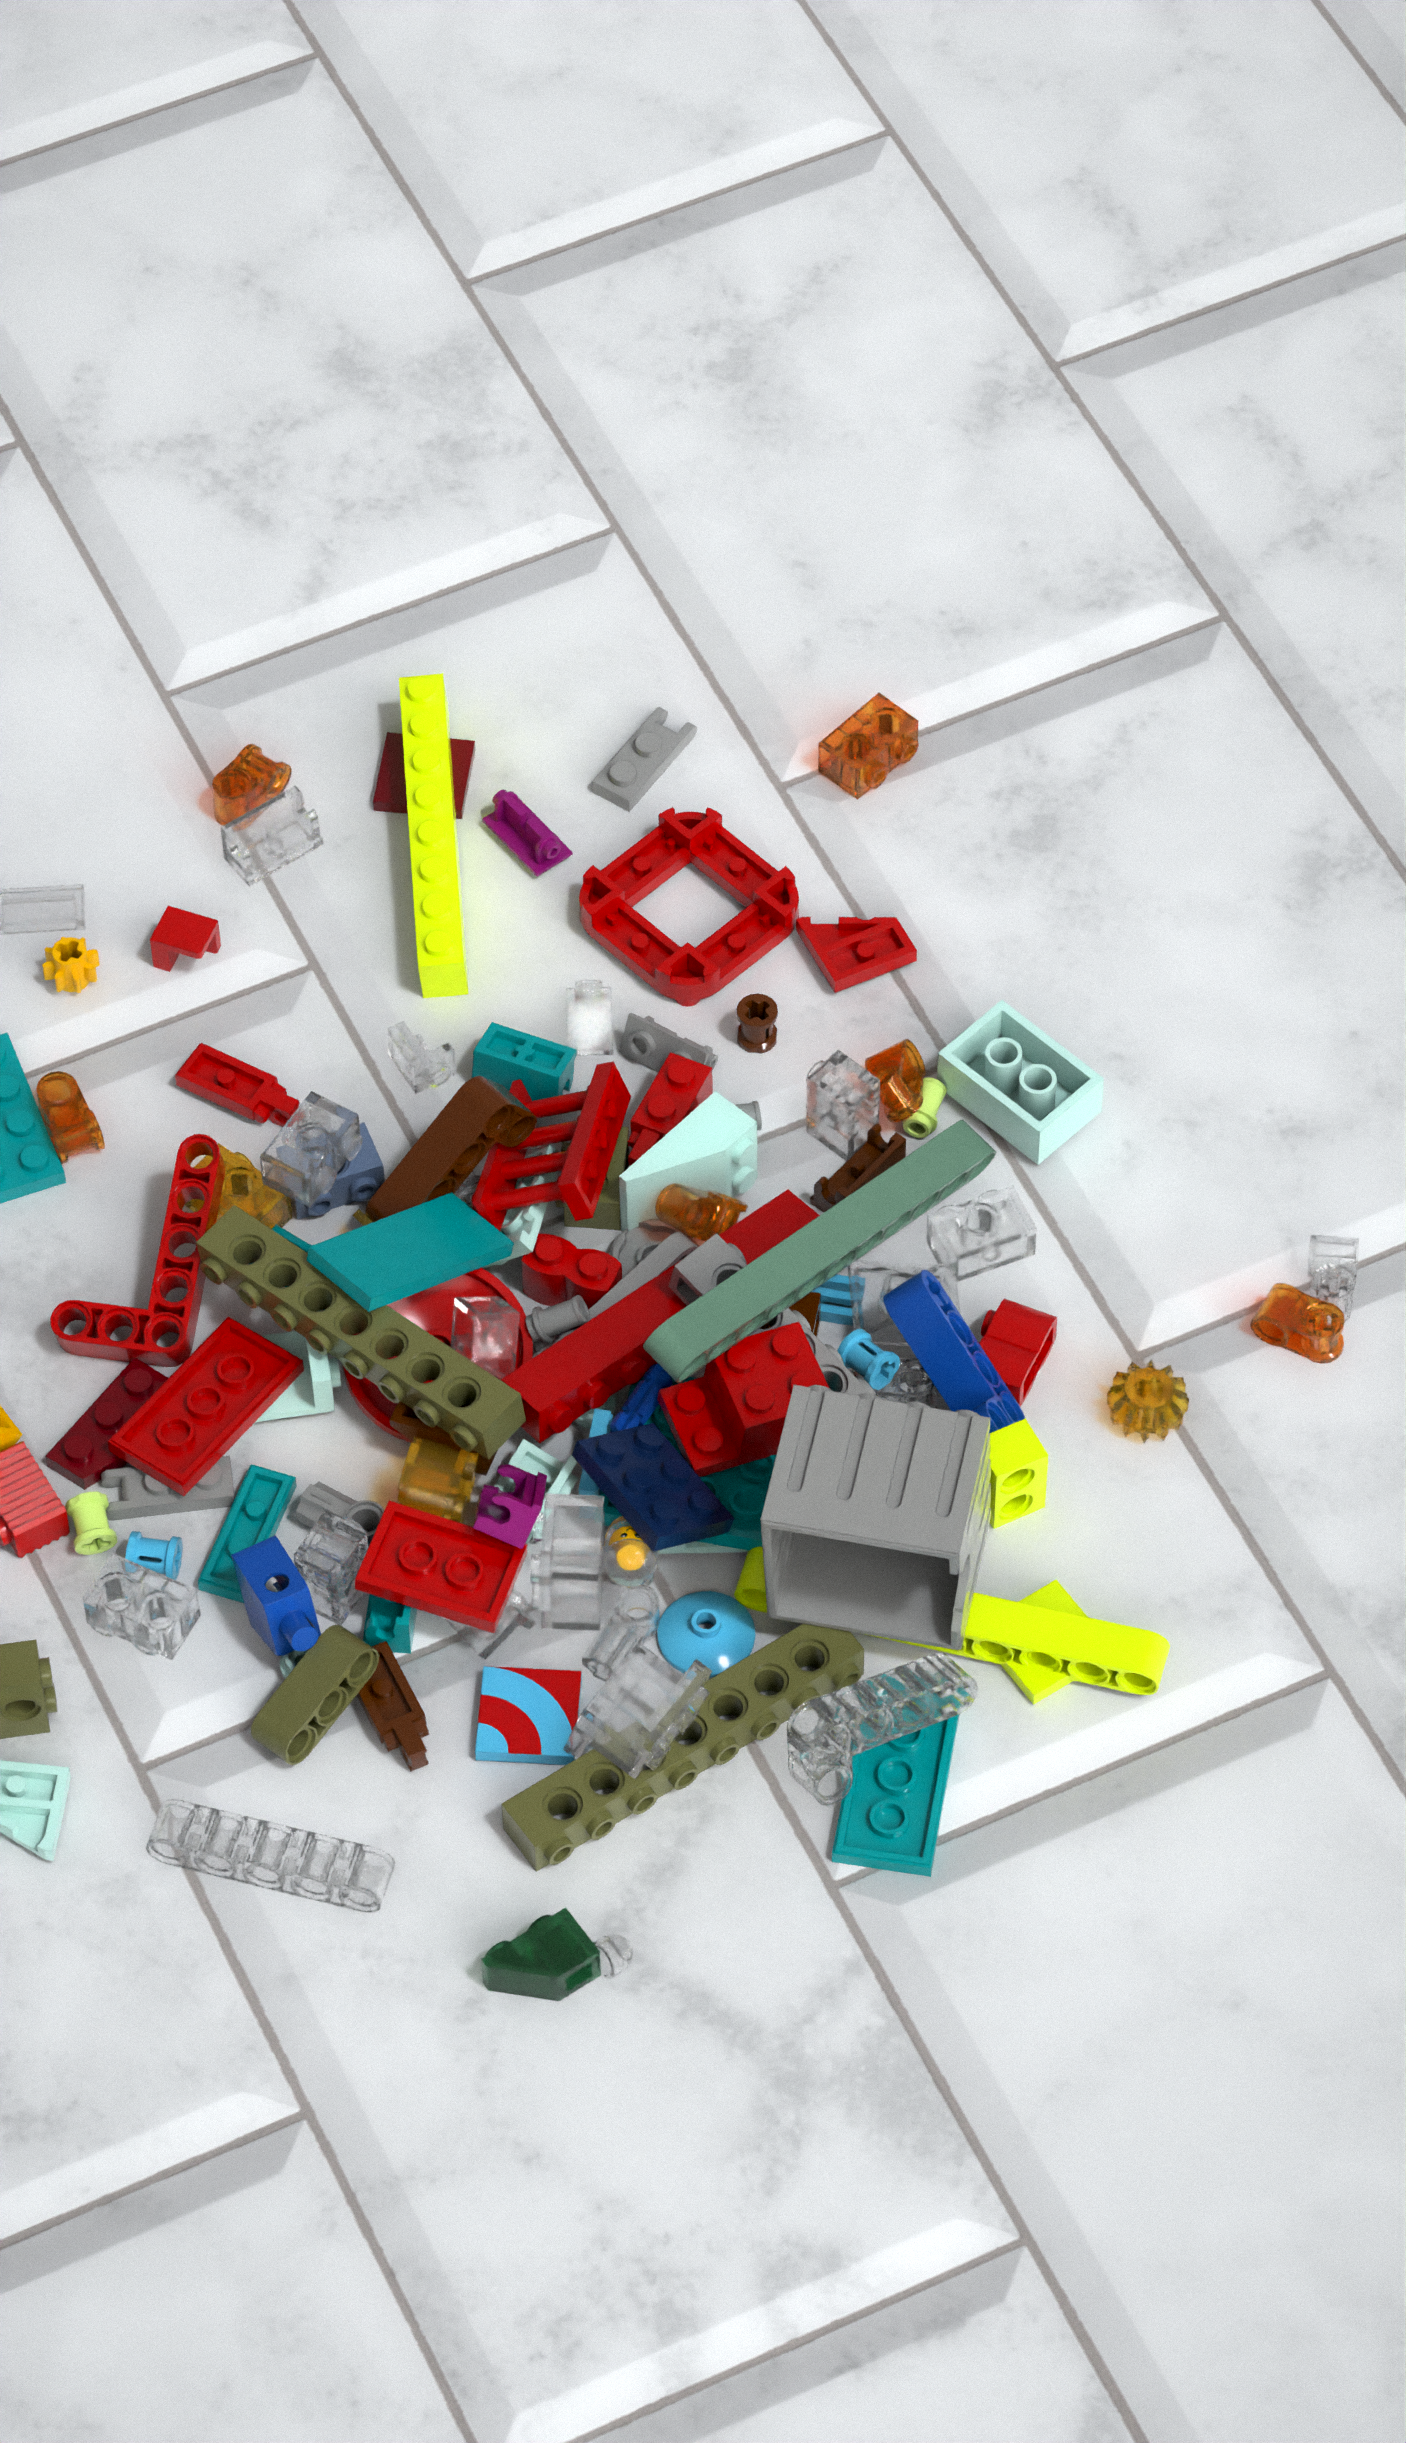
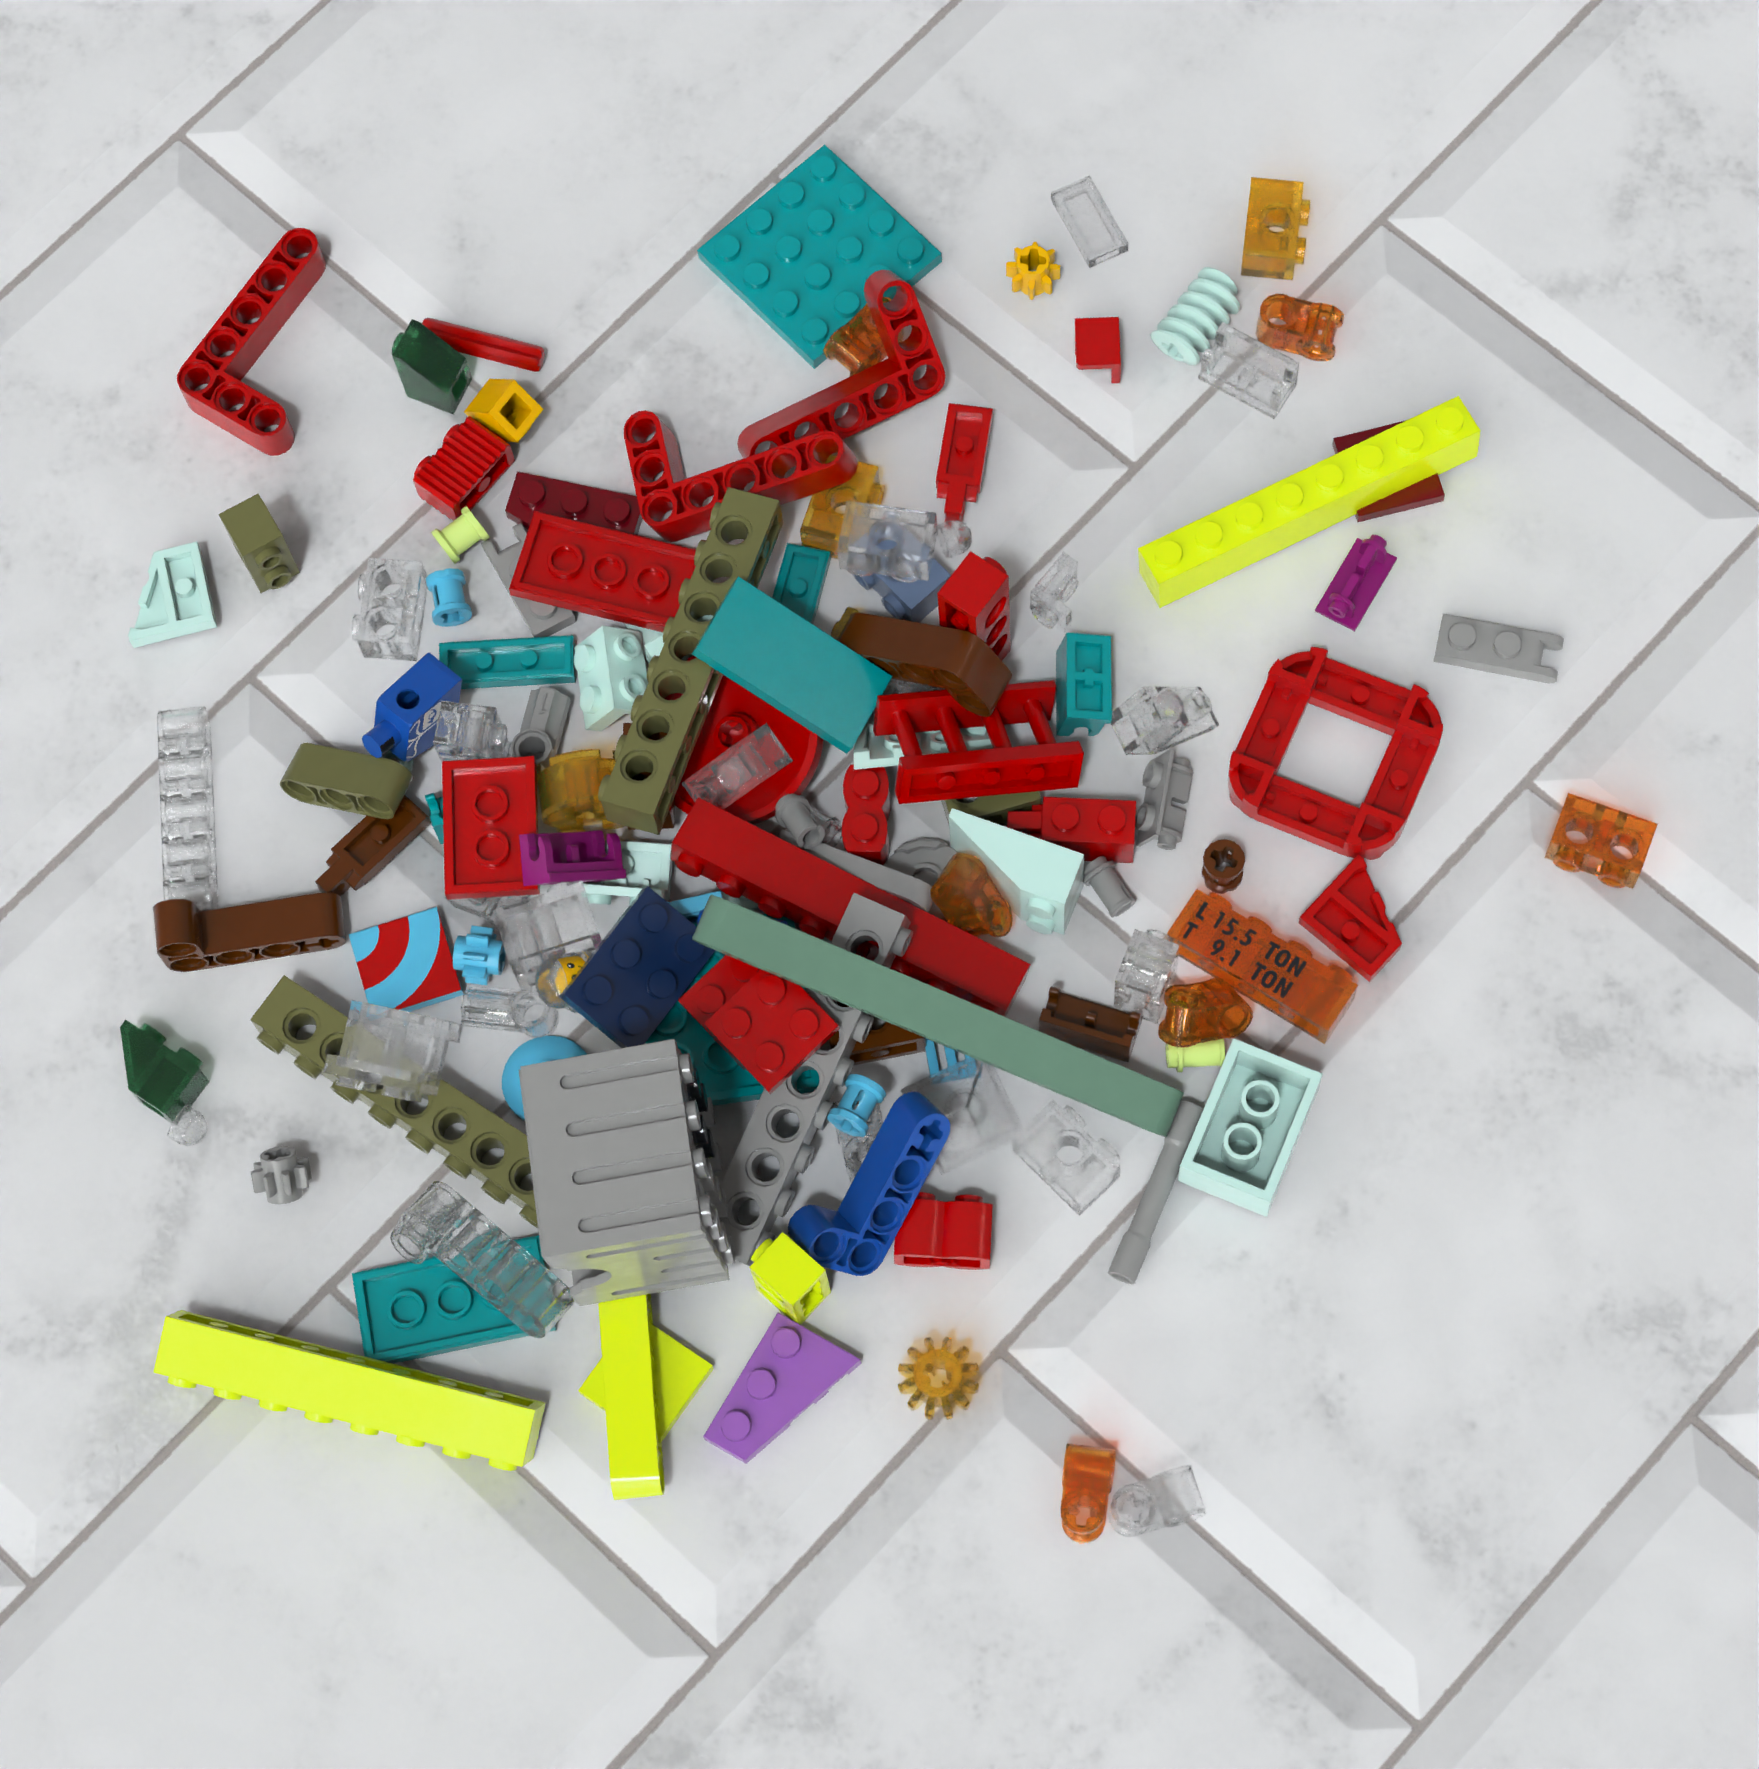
camera: 75 degrees right, 15 degrees up
(132, 1127) = (859, 389): none -> red beam
(134, 768) = (1270, 205): none -> clear yellow brick
(196, 852) = (1197, 316): none -> light aqua piece
(316, 1442) = (609, 675): none -> light aqua bracket
(421, 1866) = (246, 932): none -> reddish brown beam
(434, 1070) = (978, 602): none -> red brick
(556, 1639) = (479, 955): none -> medium azure gear
(706, 1878) = (281, 1175): none -> light grey gear
(880, 1014) = (1263, 965): none -> clear orange brick
(951, 1882) = (349, 1389): none -> neon yellow brick
(1080, 1211) = (1136, 1240): none -> light grey piece
(1098, 1537) = (776, 1386): none -> medium lavender wing

